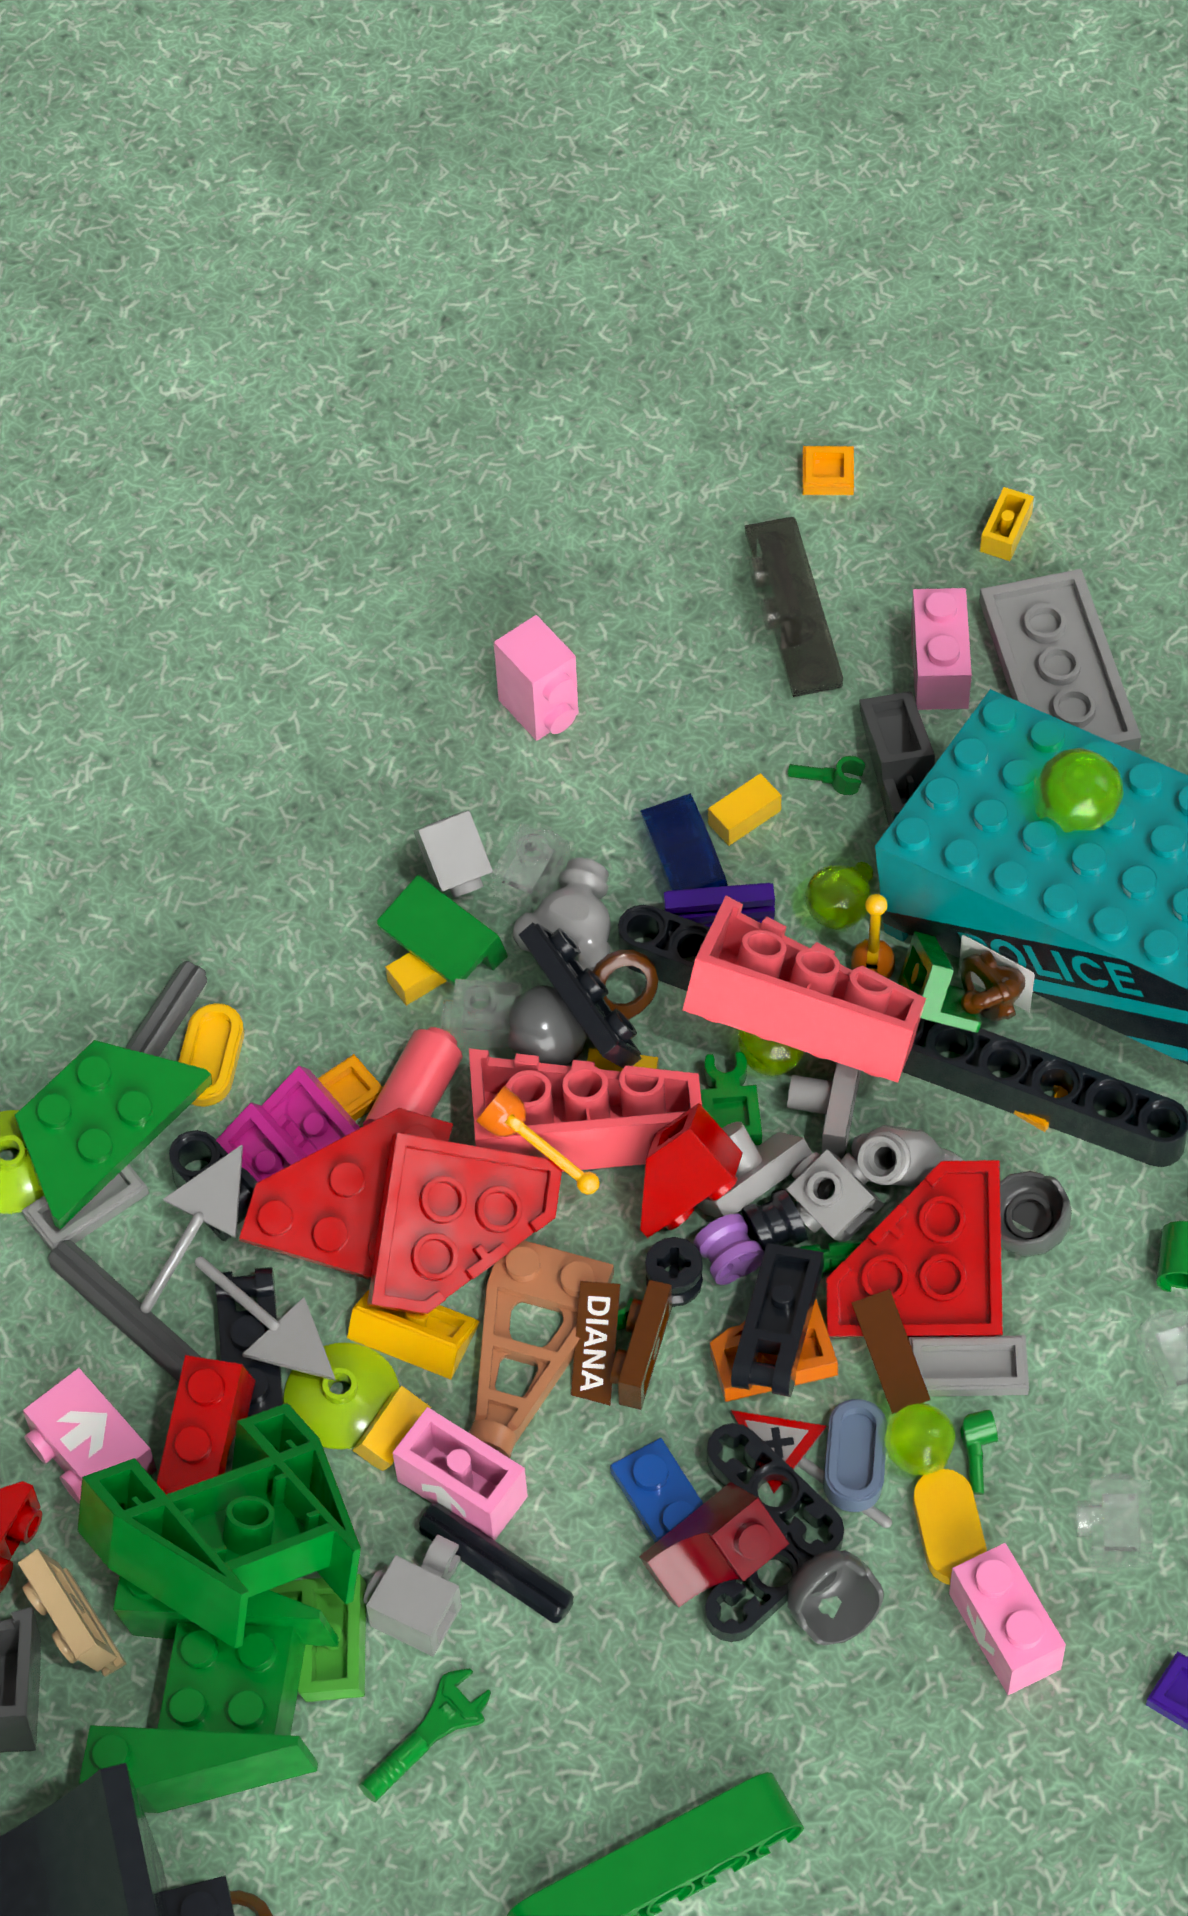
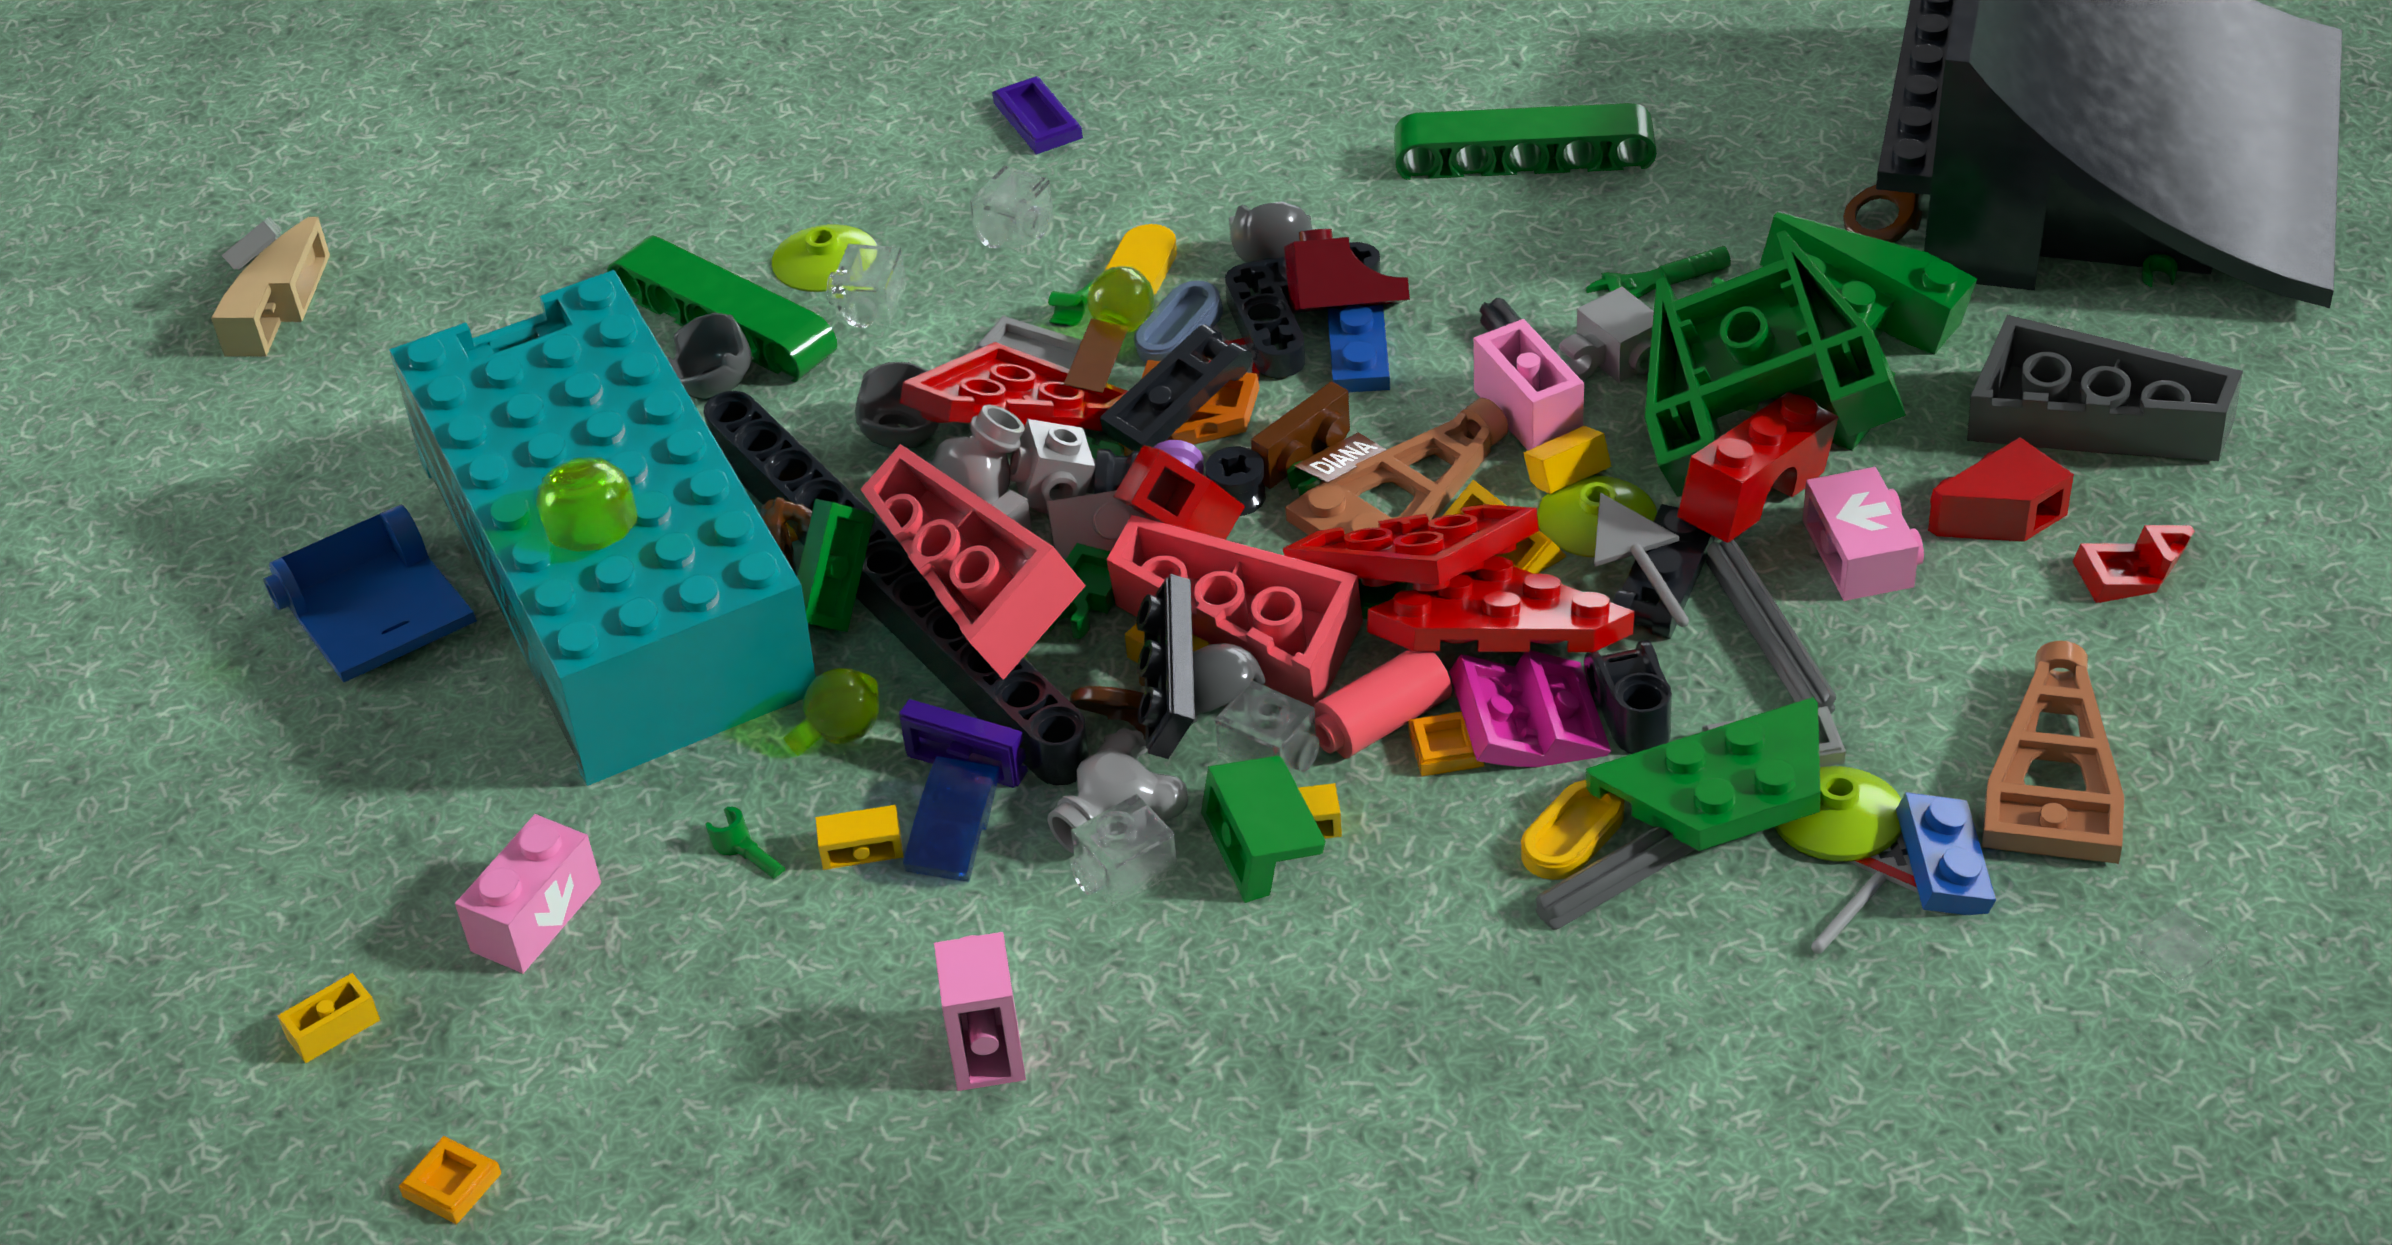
camera: 150 degrees left, 15 degrees down
(79, 1629) = (1934, 408): tan plate -> none
(210, 1199) = (1644, 648): light grey piece -> none
(454, 853) = (1200, 870): brick -> none
(507, 1116) = (1317, 556): hinge -> none
(792, 606) = (626, 1034): clear smoke bracket -> none
(873, 950) = (850, 650): hinge -> none
(897, 747) = (668, 807): dark grey slope -> none
(1006, 1618) = (1147, 176): bright pink brick -> none
(1059, 654) = (428, 844): light grey plate -> none

